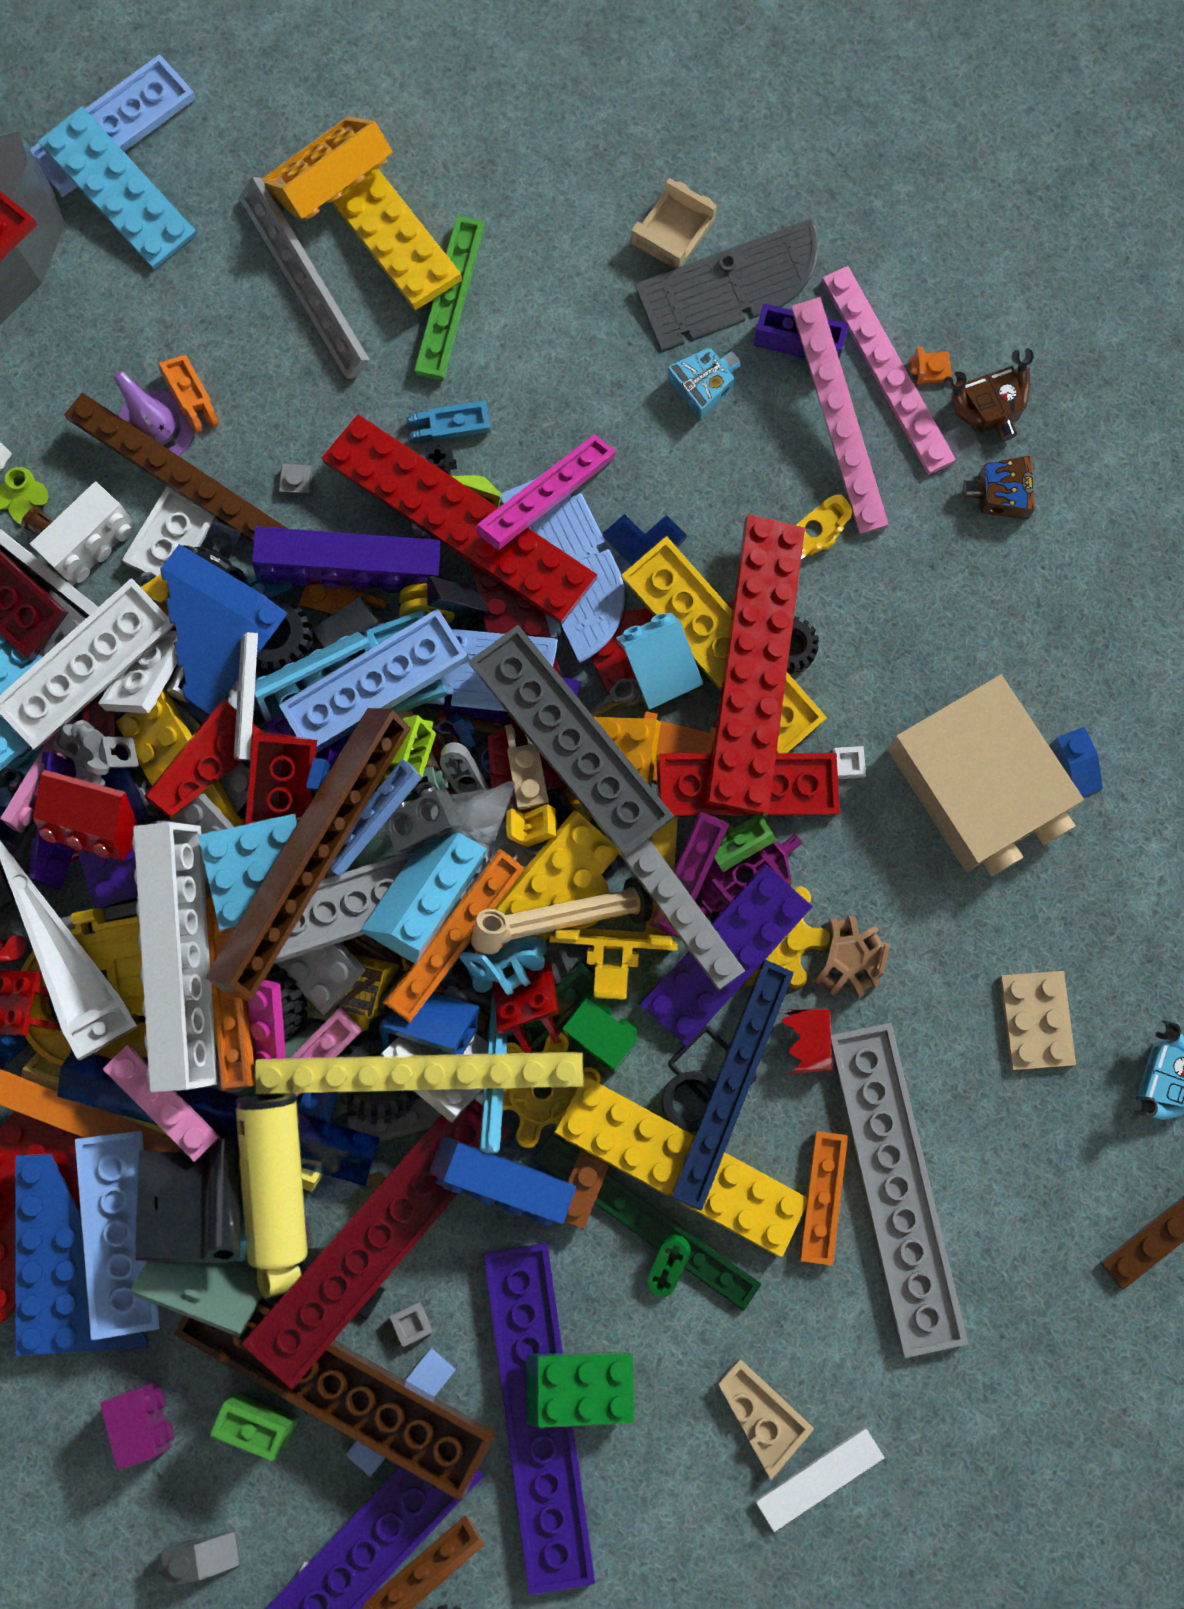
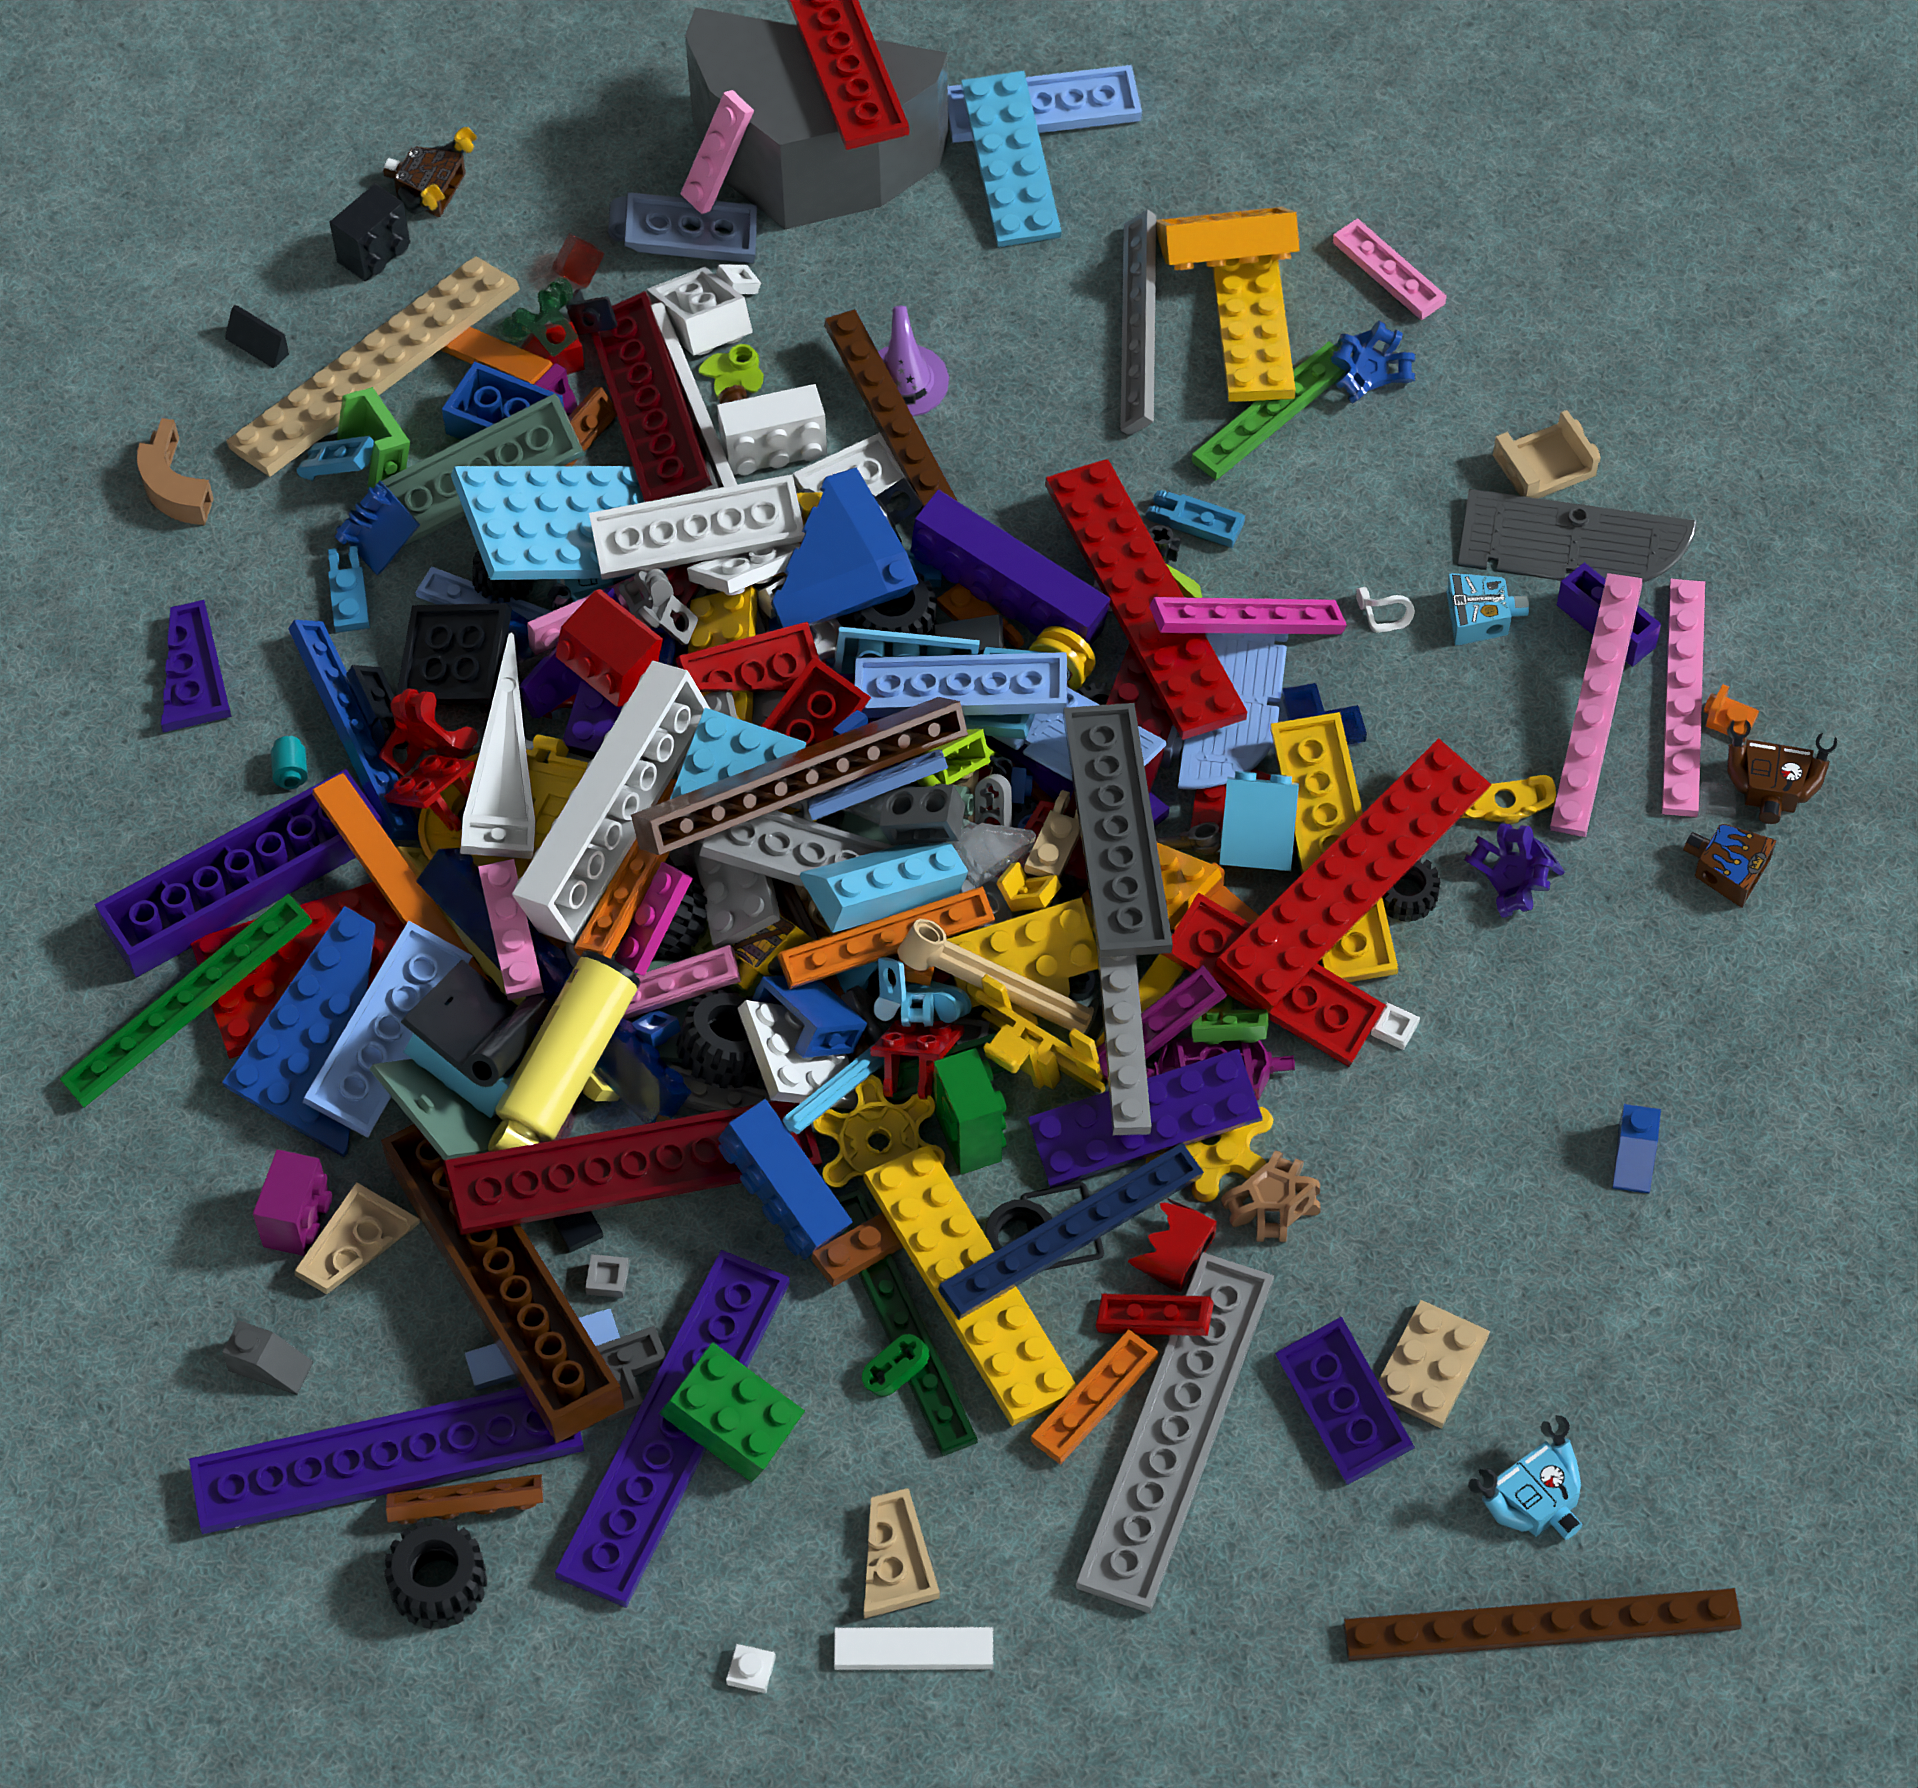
camera: 30 degrees right, 20 degrees down
(188, 391) = (957, 363): orange hinge -> none
(197, 1403) = (353, 1238): none -> tan wing
(245, 696) = (829, 625): white tile -> none
(255, 1425) = (404, 1261): bright green panel -> none
(296, 480) = (1009, 492): light grey plate -> none
(419, 1072) = (777, 1034): light yellow plate -> none
(455, 598) = (1091, 660): black slope -> none
(462, 127) = (1389, 269): none -> bright pink plate
(465, 1389) = (631, 1357): none -> dark grey plate
(497, 219) = (1368, 366): none -> blue piece
(614, 421) = (1365, 602): none -> white piece
(715, 1571) = (751, 1668): none -> white plate
(827, 1107) = (1154, 1314): none -> red tile
(859, 586) = (1515, 872): none -> dark purple piece
(986, 777) = (1525, 1102): tan brick -> none
(1001, 1092) = (1344, 1400): none -> dark purple plate

